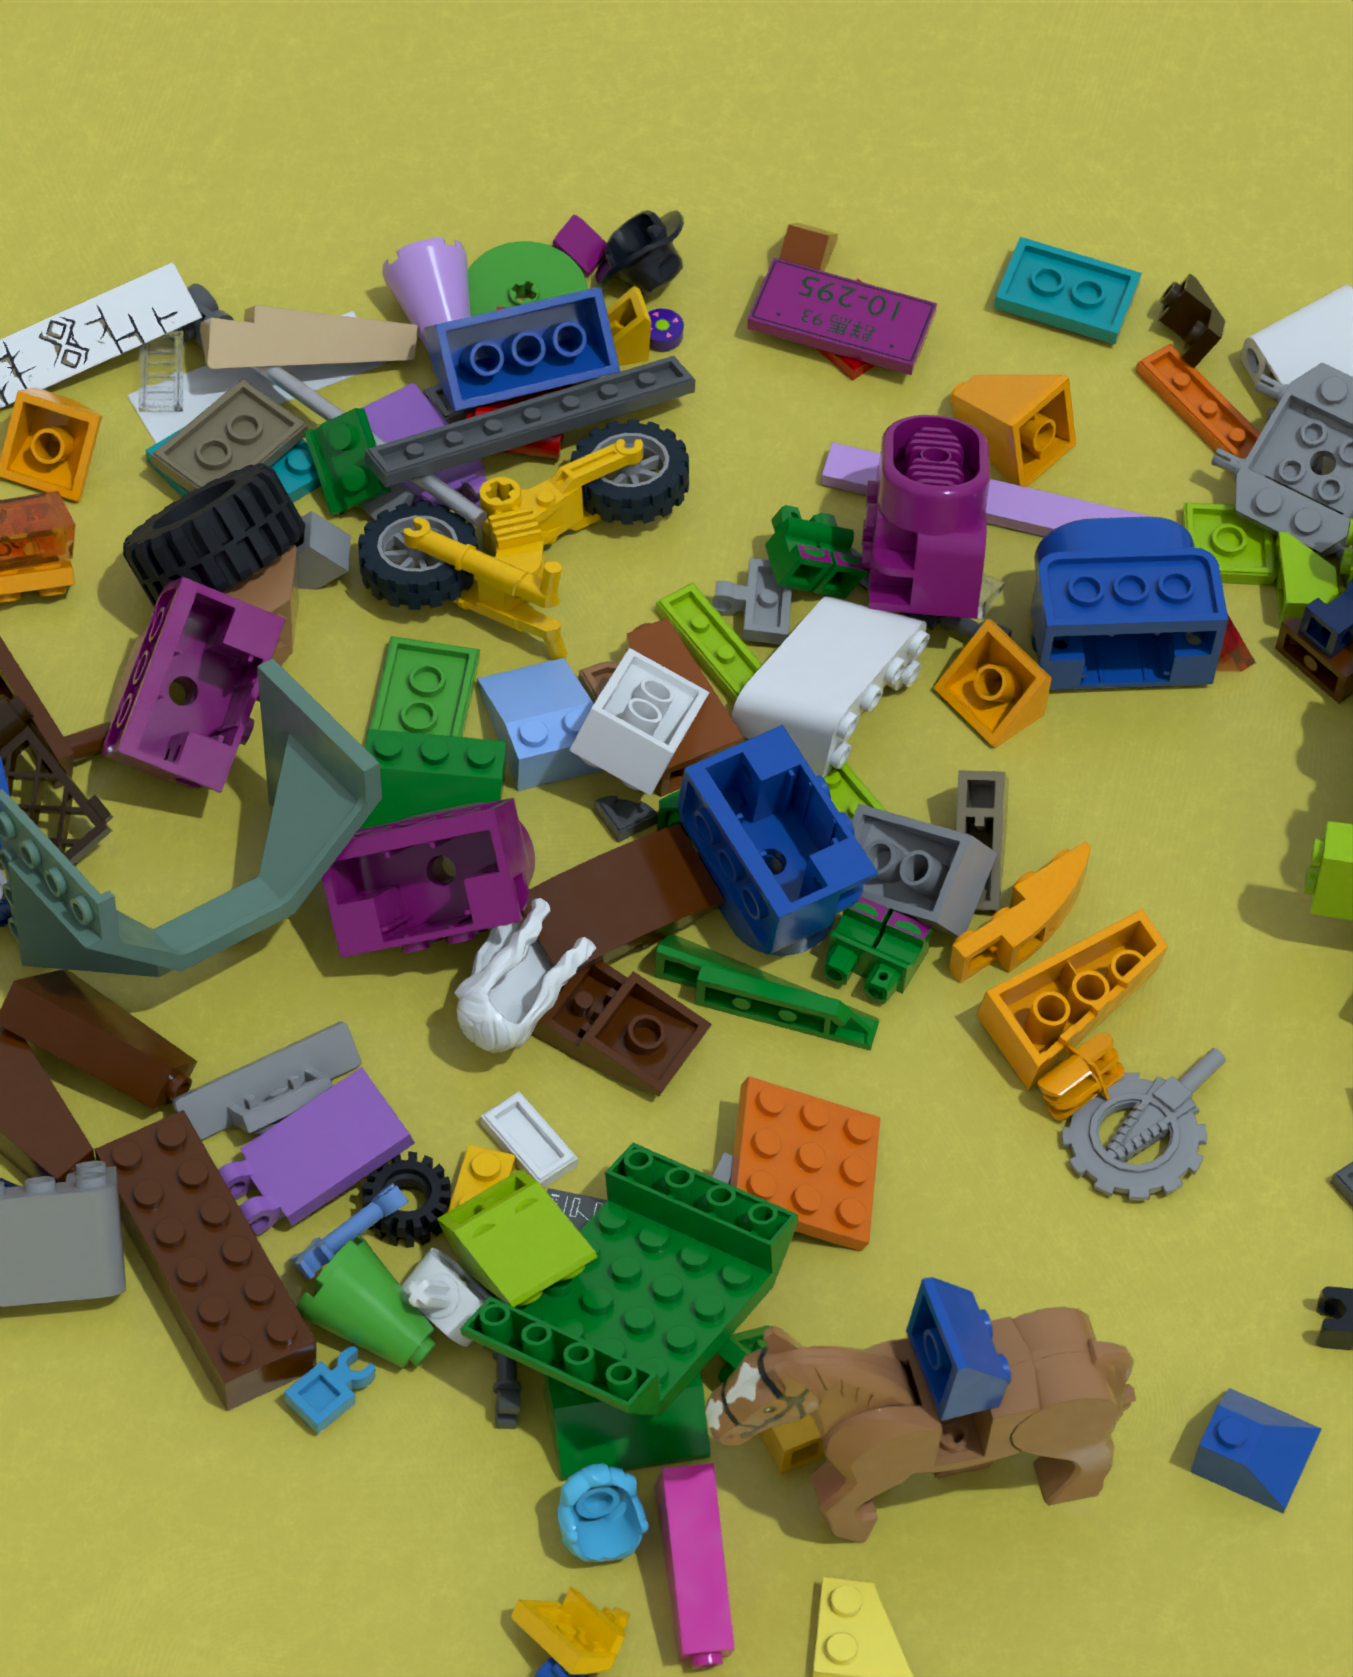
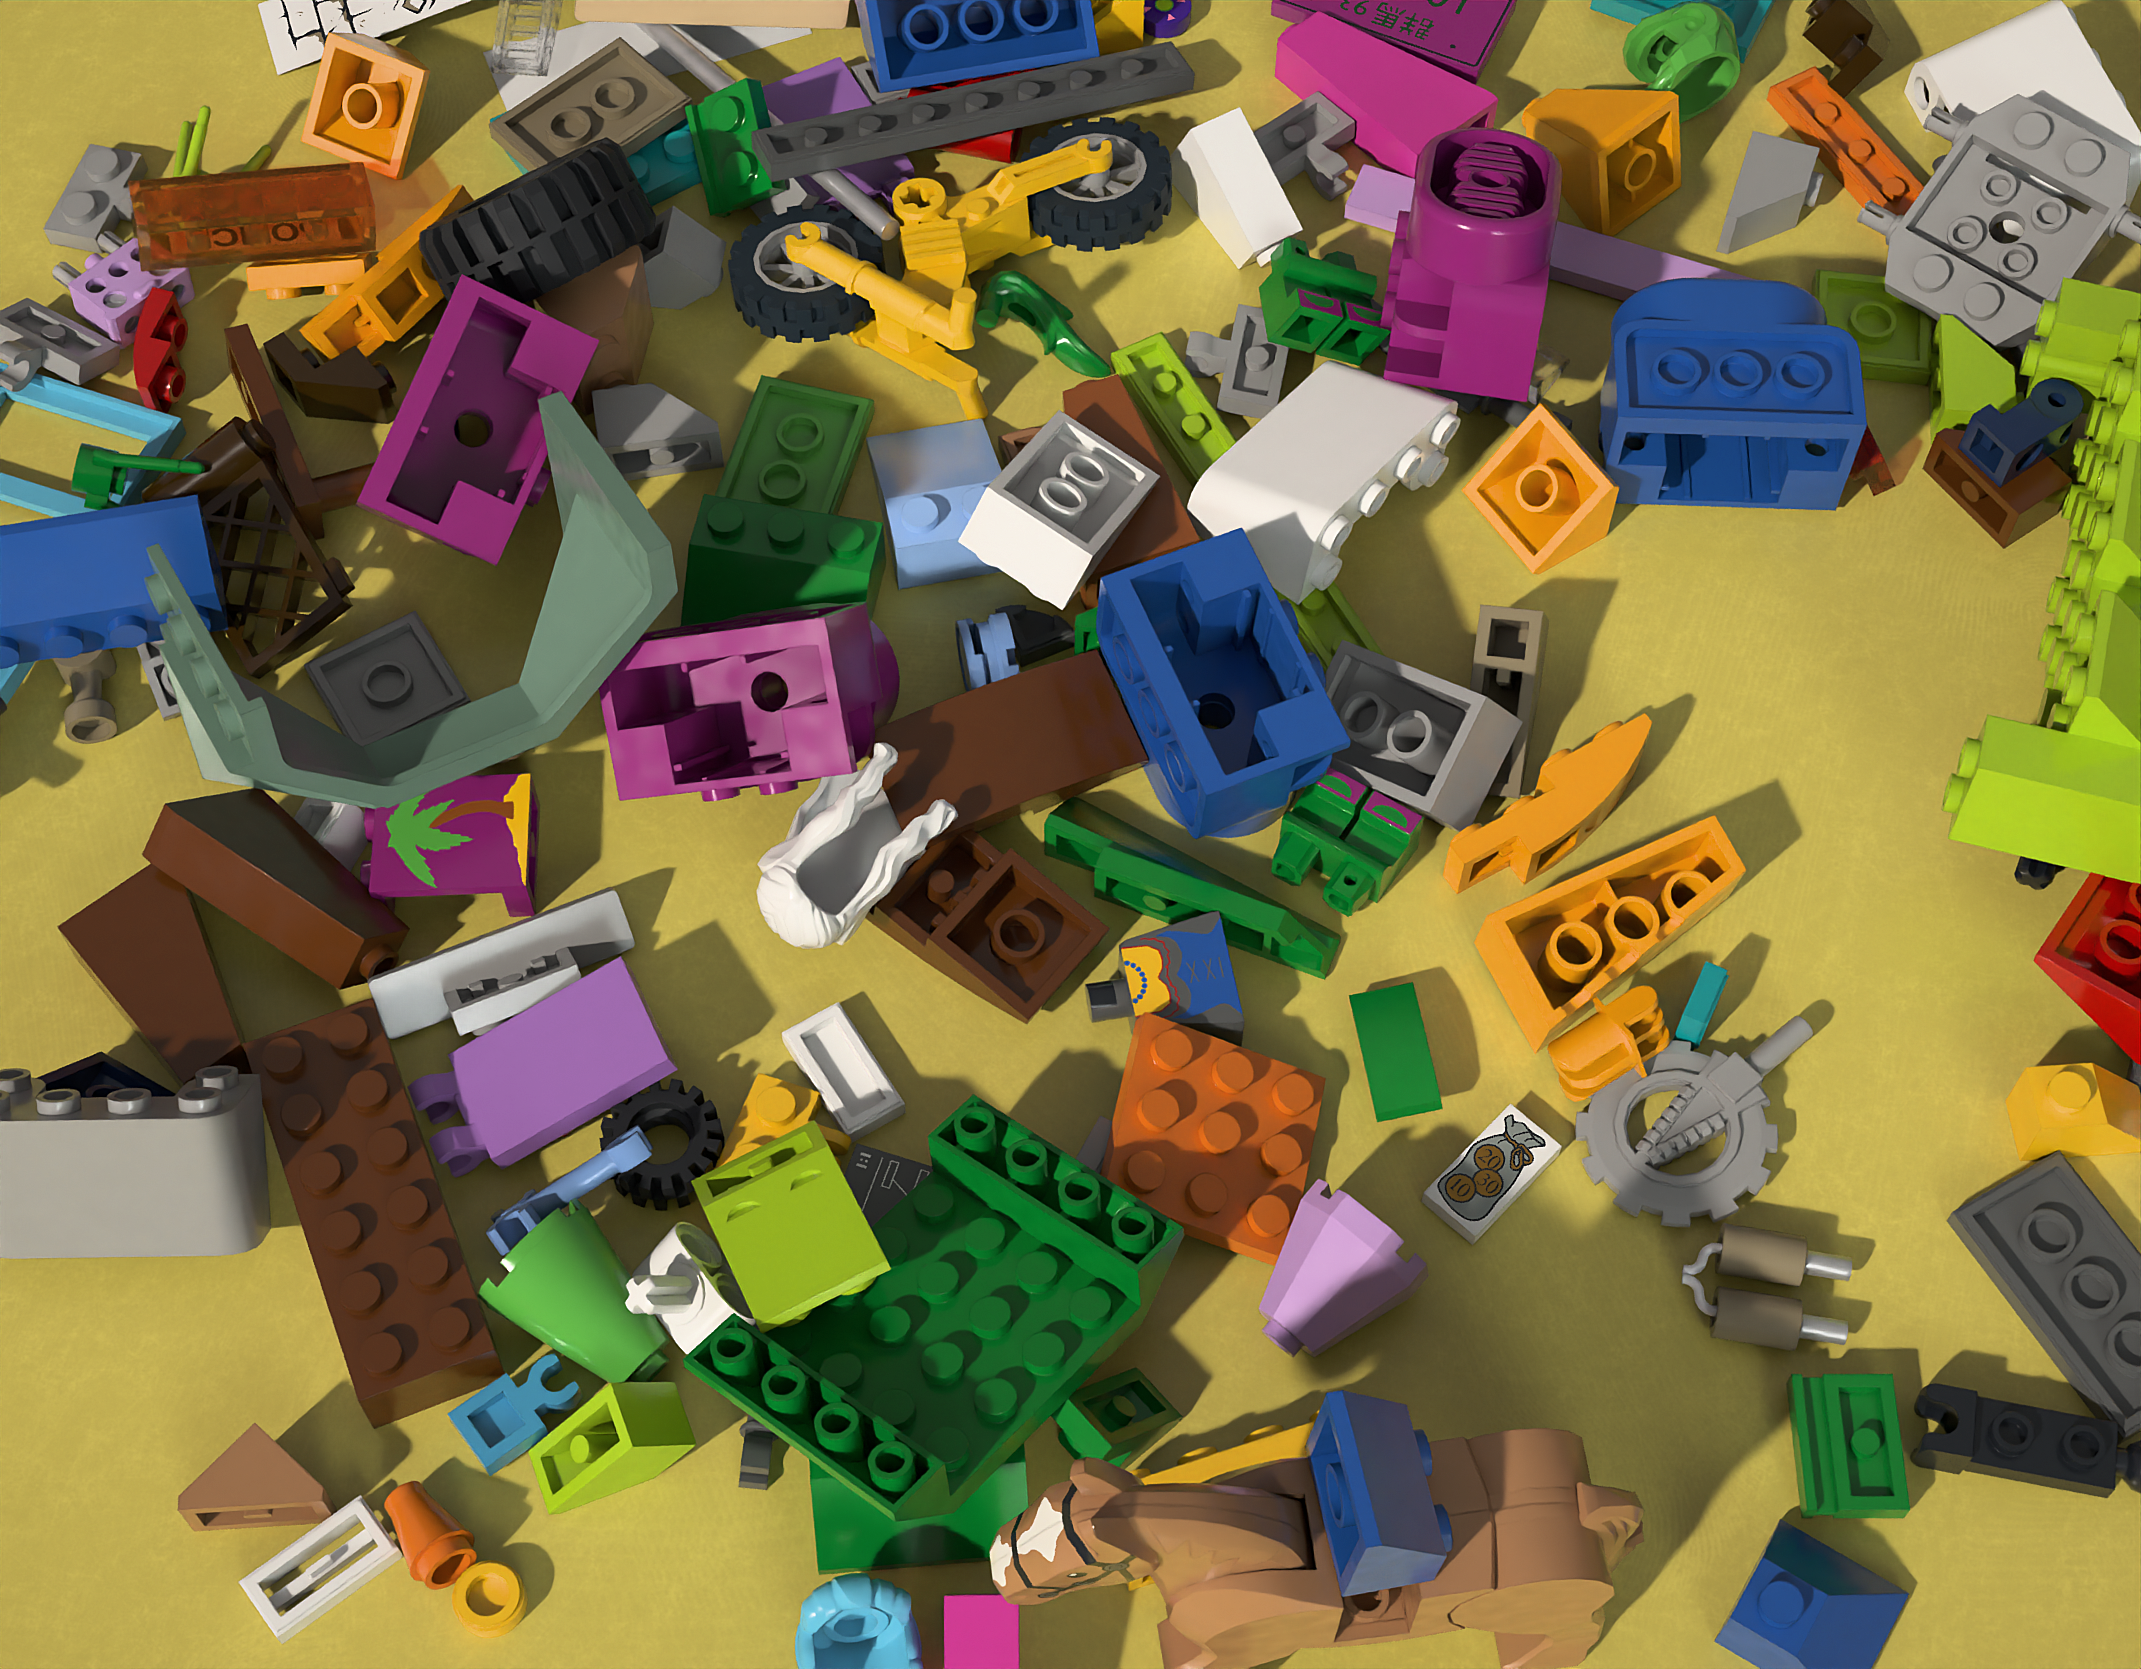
camera: 10 degrees right, 5 degrees up
(69, 669) = (338, 389): none -> dark brown slope
(96, 593) = (388, 296): none -> light orange slope
(125, 991) = (335, 827): none -> white slope
(149, 883) = (386, 681): none -> light grey tile
(157, 1453) = (254, 1488): none -> medium nougat slope
(177, 1533) = (334, 1591): none -> white tile
(220, 997) = (458, 841): none -> magenta panel
(285, 1476) = (430, 1537): none -> orange cone
(329, 681) = (654, 432): none -> light grey slope
(331, 1514) = (489, 1599): none -> yellow tile
(404, 1403) = (612, 1444): none -> lime slope
(586, 566) = (1021, 299): none -> green piece
(593, 831) = (985, 650): none -> medium blue wheel
(737, 470) = (1234, 189): none -> white slope
(764, 1049) = (1176, 975): none -> torso
(781, 428) = (1306, 141): none -> light grey plate
(838, 387) = (1386, 91): none -> dark pink slope
(903, 1245) = (1334, 1273): none -> lavender cone
(928, 1095) = (1395, 1052): none -> green slope
(1005, 1174) = (1491, 1174): none -> tile
(1072, 341) = (1686, 52): none -> bright green helmet
(1144, 444) = (1769, 191): none -> light grey slope
(1144, 1045) = (1701, 1005): none -> teal tile
(1206, 1255) = (1761, 1316): none -> dark tan piece
(1271, 1335) = (1847, 1446): none -> green plate

